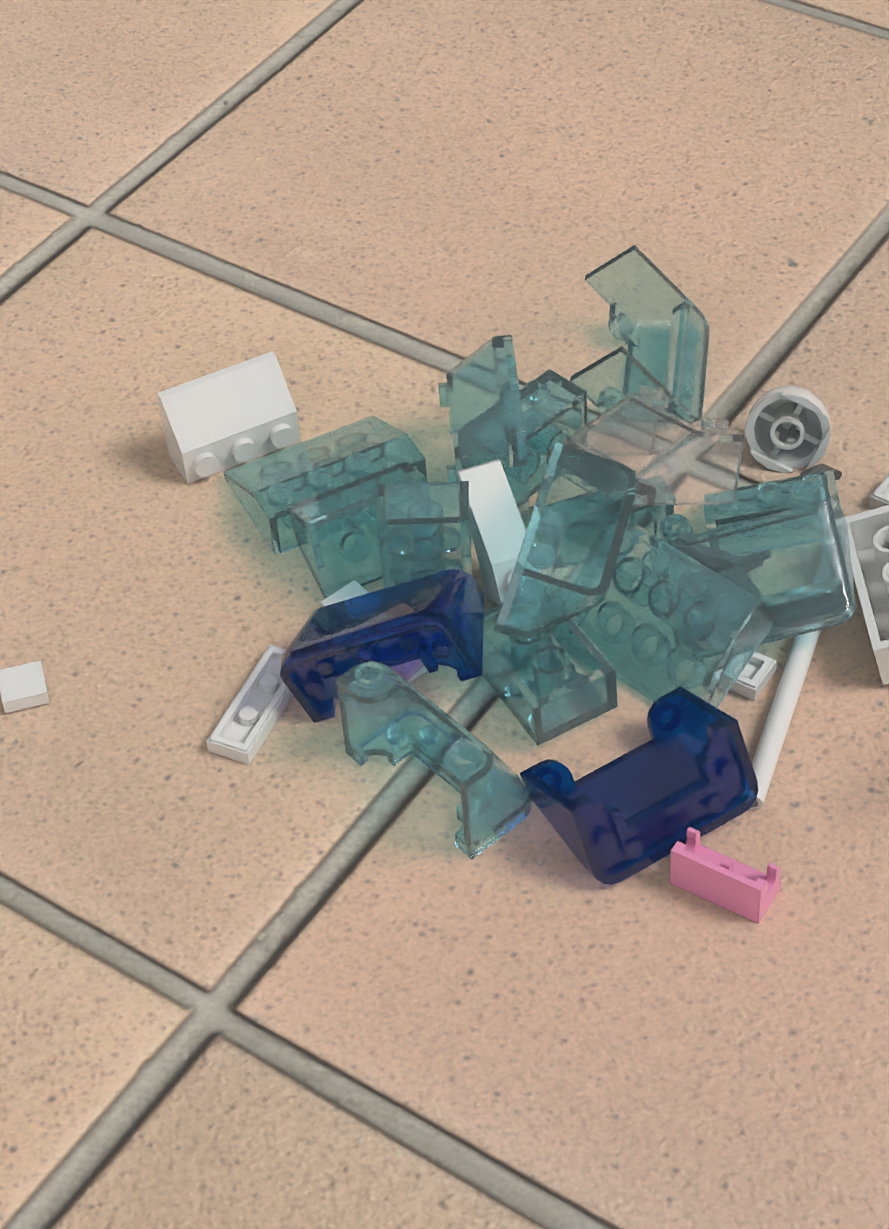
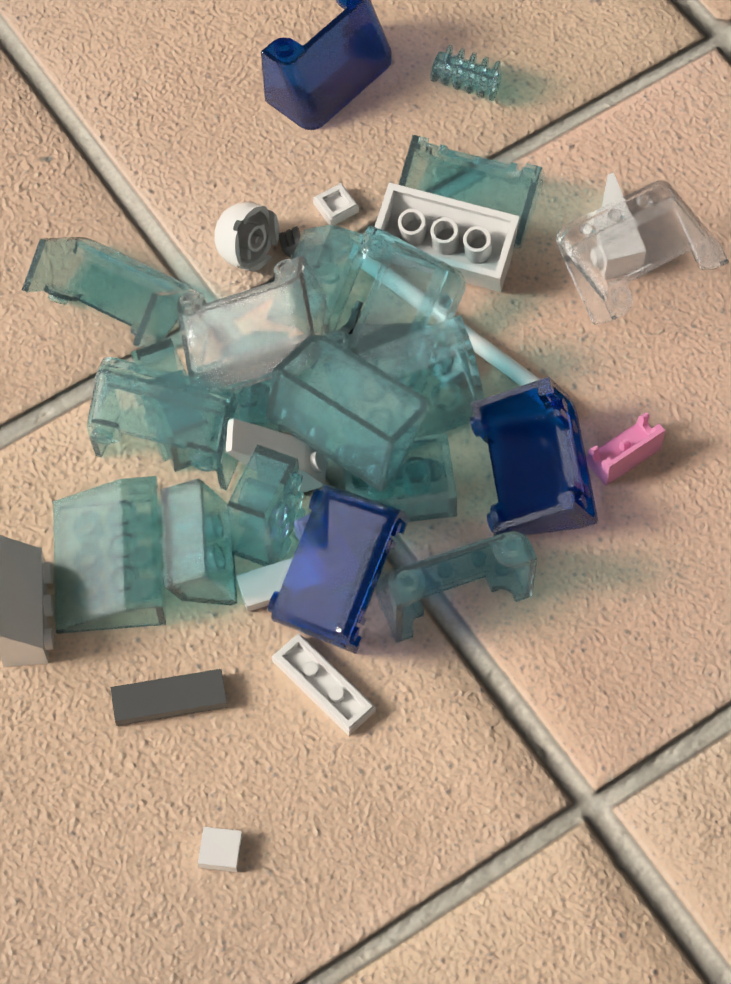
camera: 70 degrees left, 15 degrees up
(185, 584) = (168, 697): none -> dark grey tile

